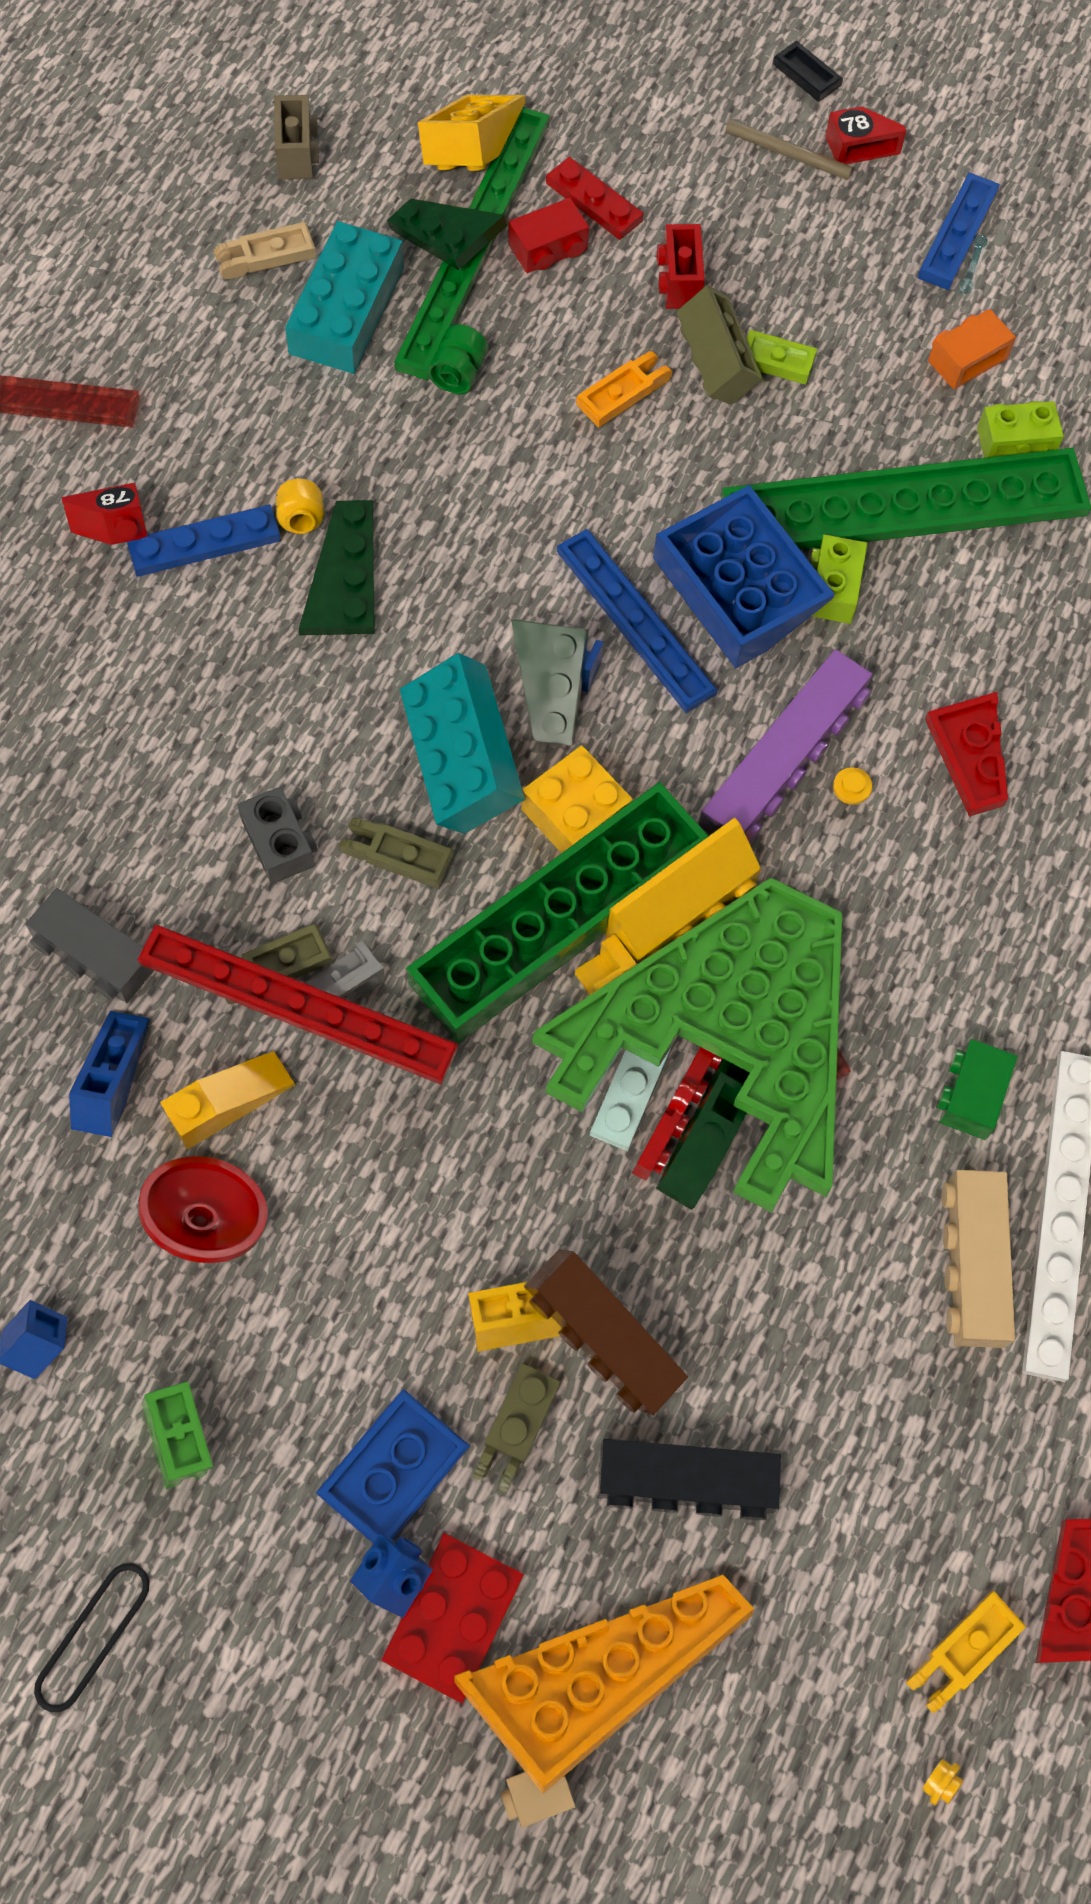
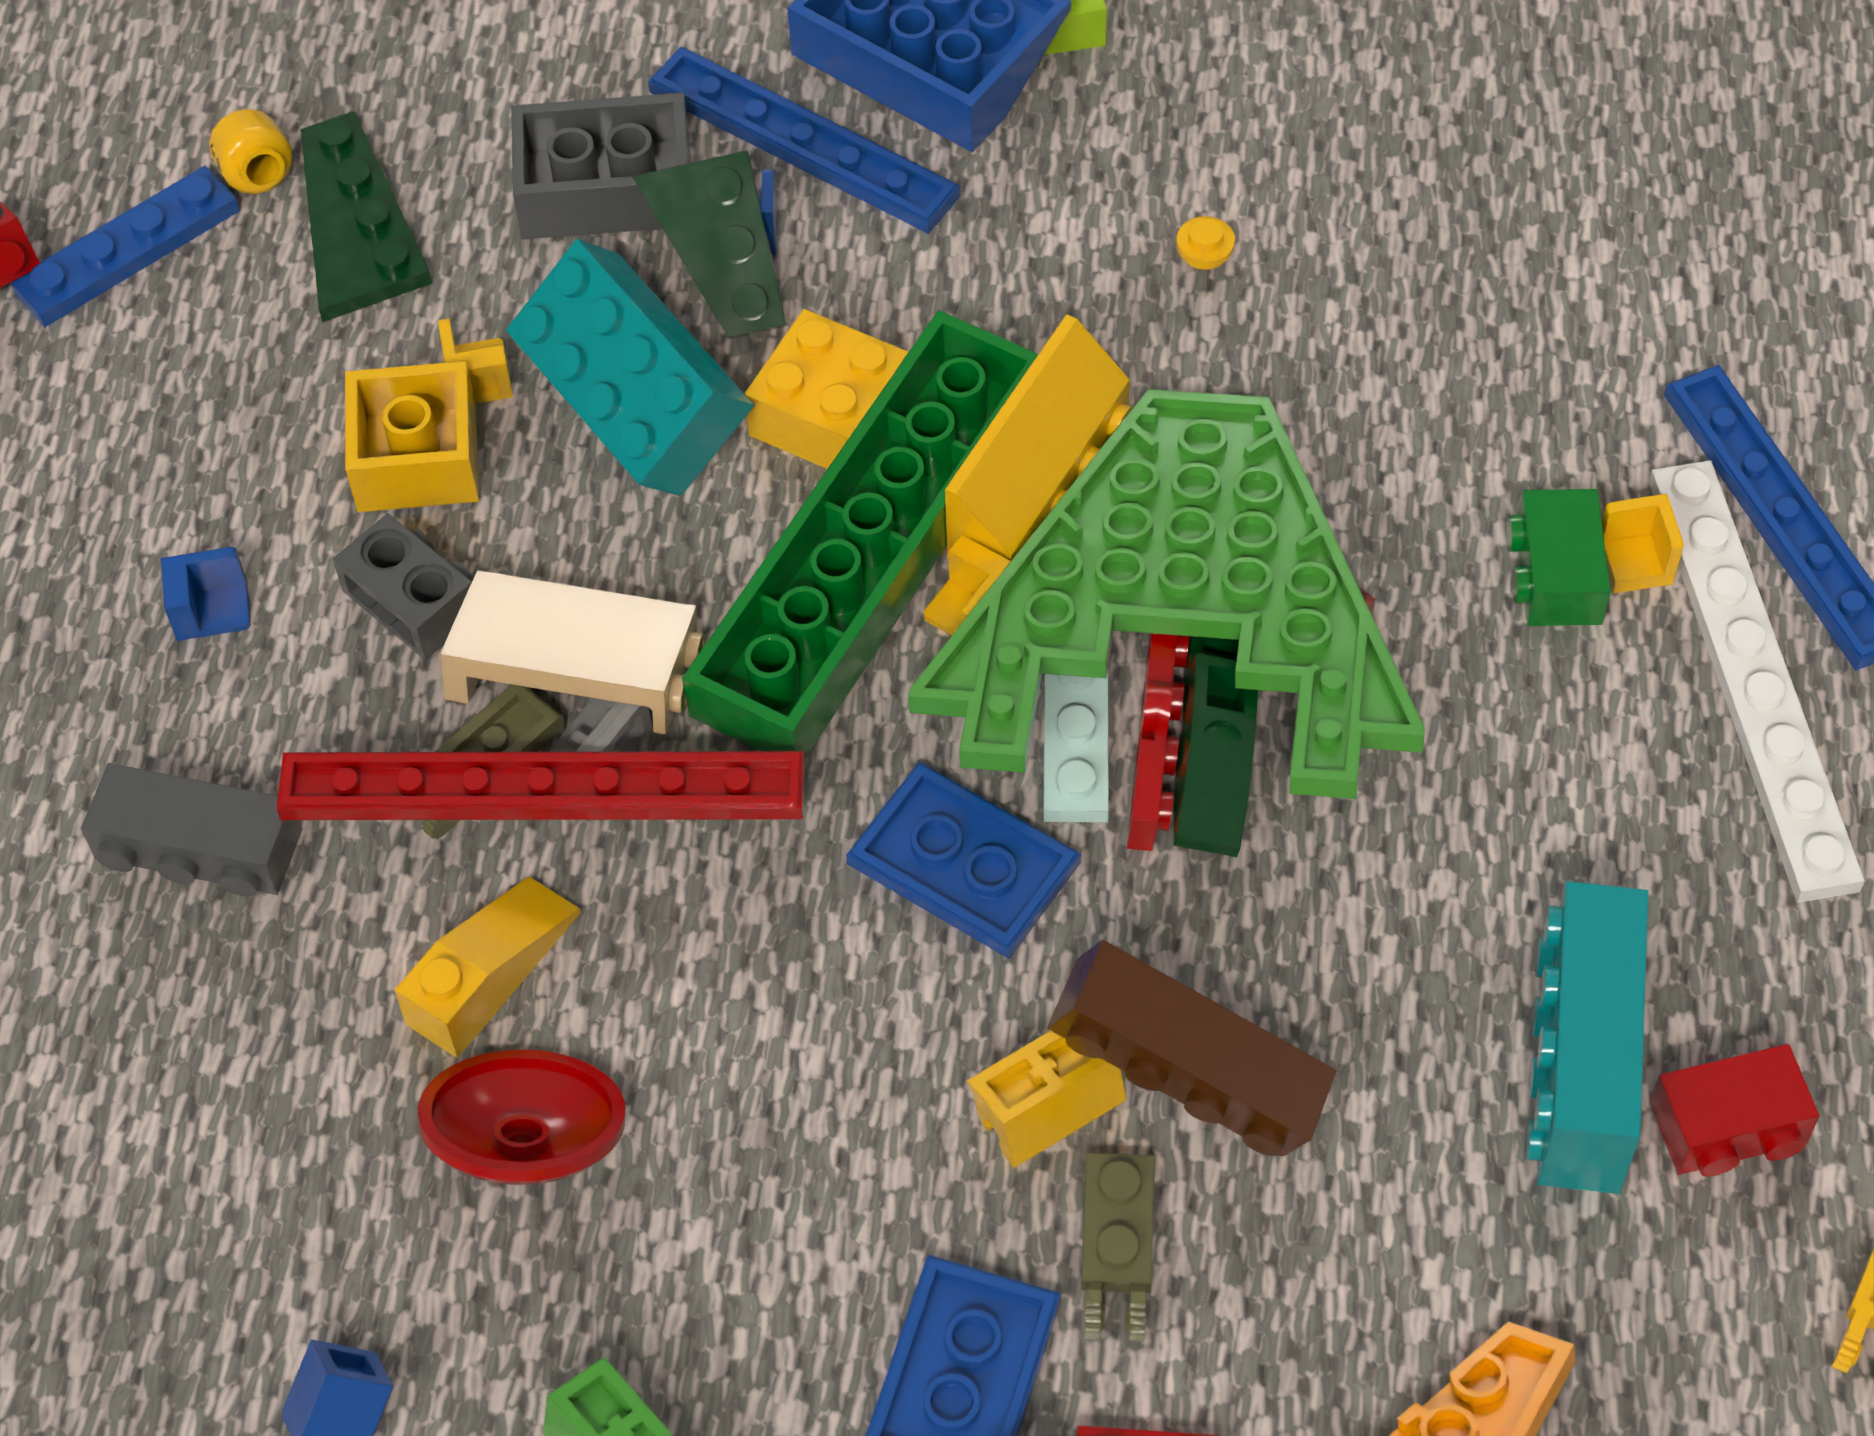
camera: 15 degrees left, 10 degrees down
(107, 1074) = (294, 995): blue slope -> none
(158, 794) = (205, 593): none -> blue panel
(316, 738) = (411, 436): none -> yellow brick
(355, 915) = (572, 643): none -> panel
(374, 702) = (485, 364): none -> yellow panel
(399, 852) = (596, 547): olive hinge -> none
(495, 586) = (580, 157): none -> dark grey brick
(531, 1142) = (964, 859): none -> blue tile
(689, 1477) = (1398, 1210): black brick -> none
(788, 747) = (1098, 210): medium lavender brick -> none
(851, 1420) = (1589, 1038): none -> teal brick
(919, 1498) = (1734, 1111): none -> red brick
(971, 750) = (1347, 141): red wing -> none
(979, 1259) = (1669, 772): tan brick -> none
(1030, 1100) = (1641, 543): none -> yellow panel

